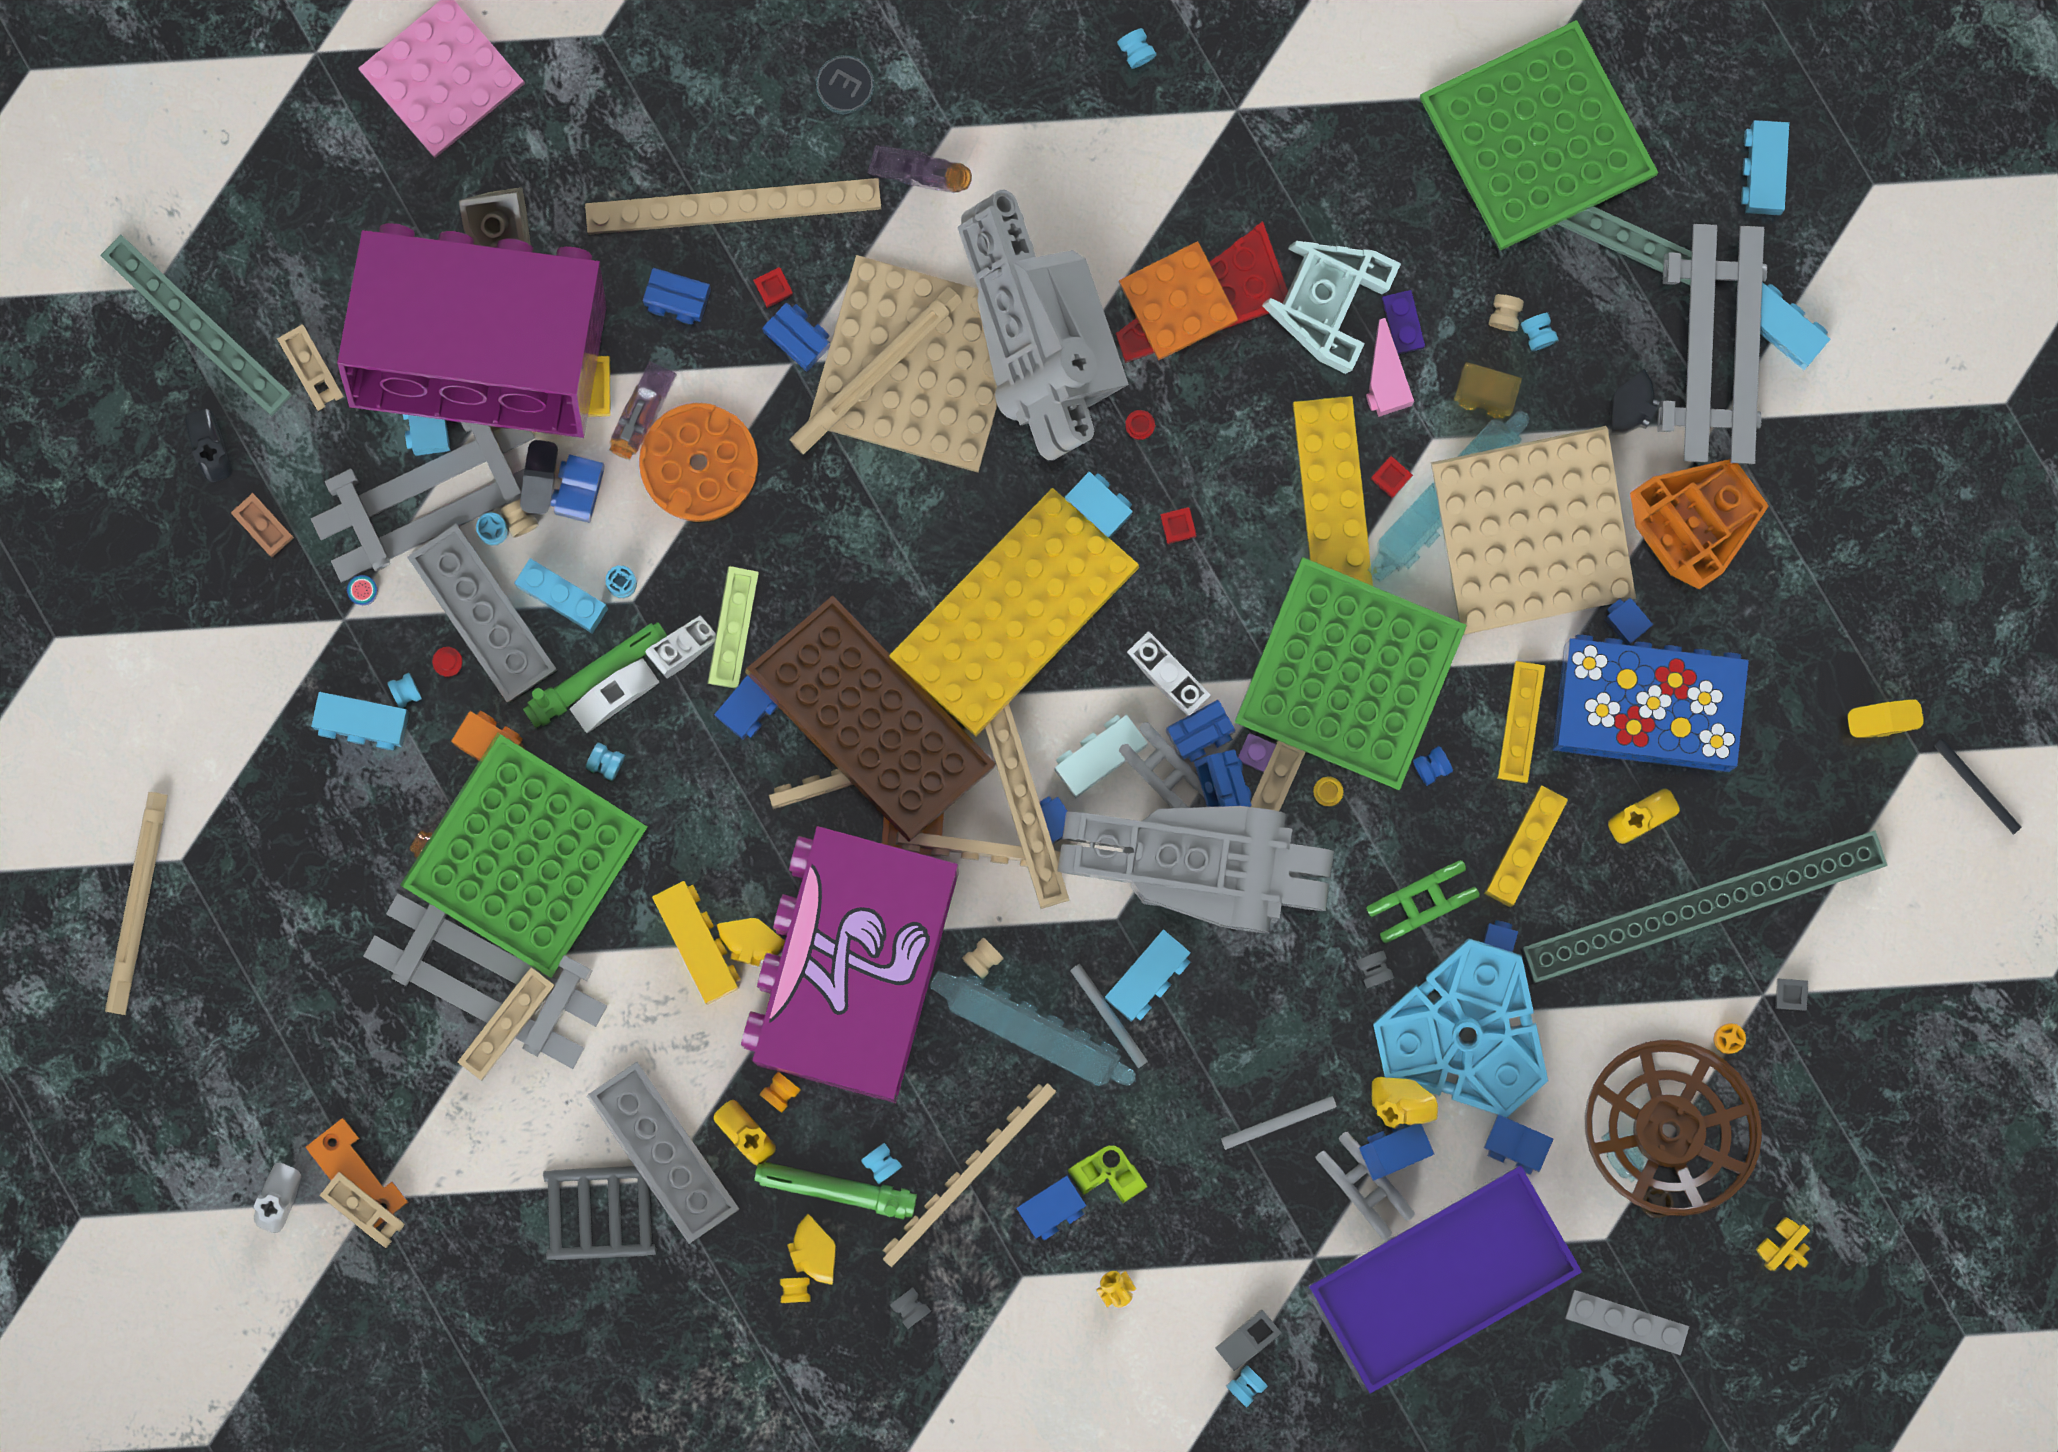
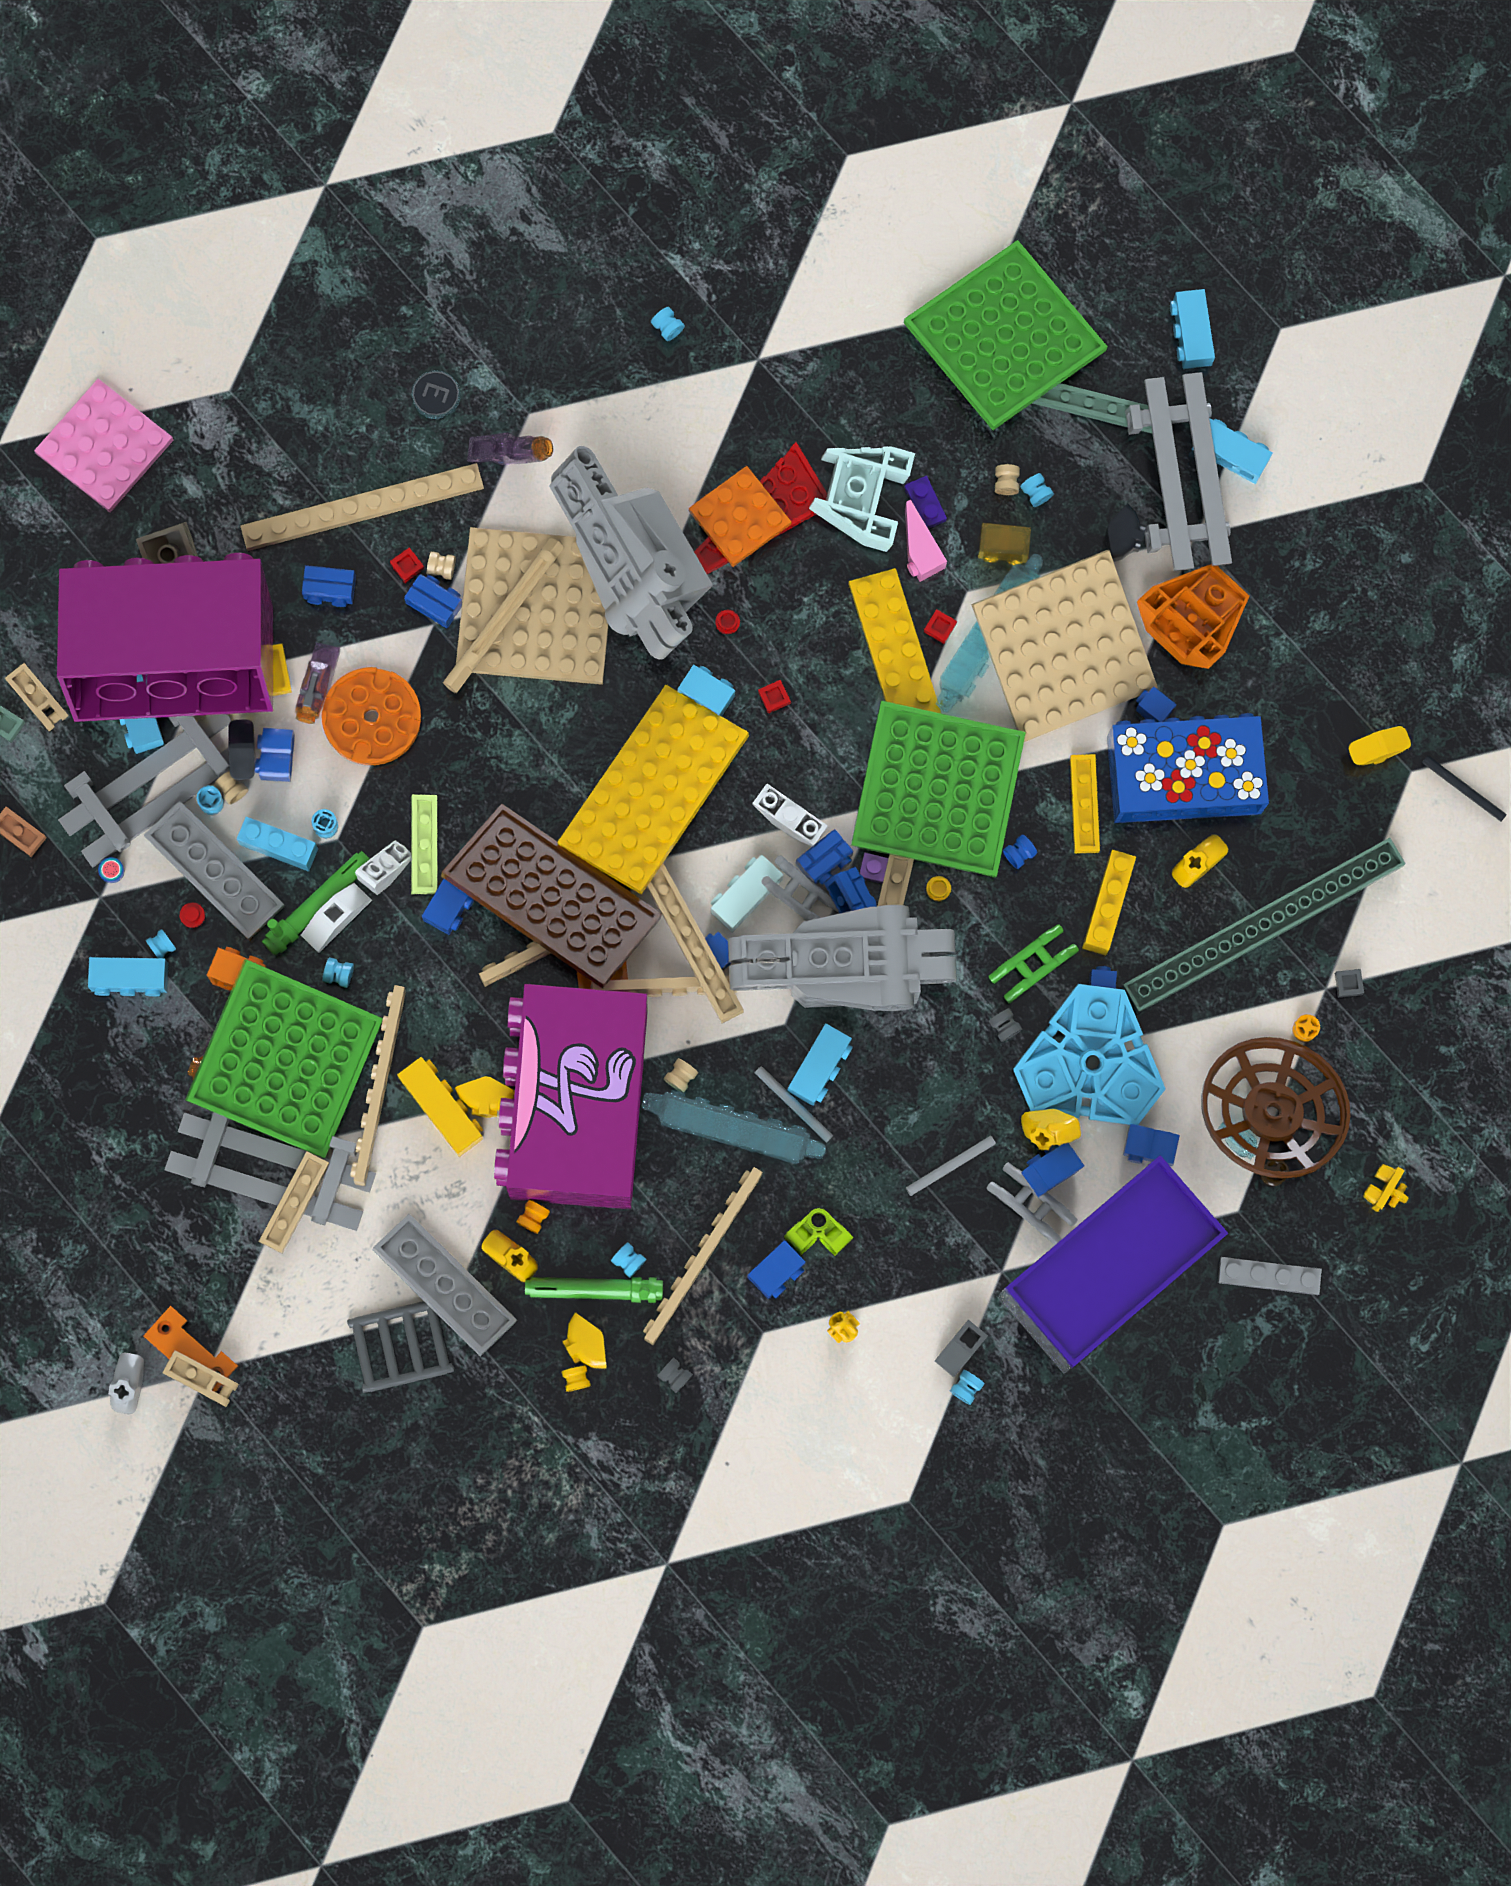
camera: 15 degrees left, 5 degrees down
(623, 916) = (376, 1095): none -> tan plate
(813, 295) = (441, 565): none -> tan wheel

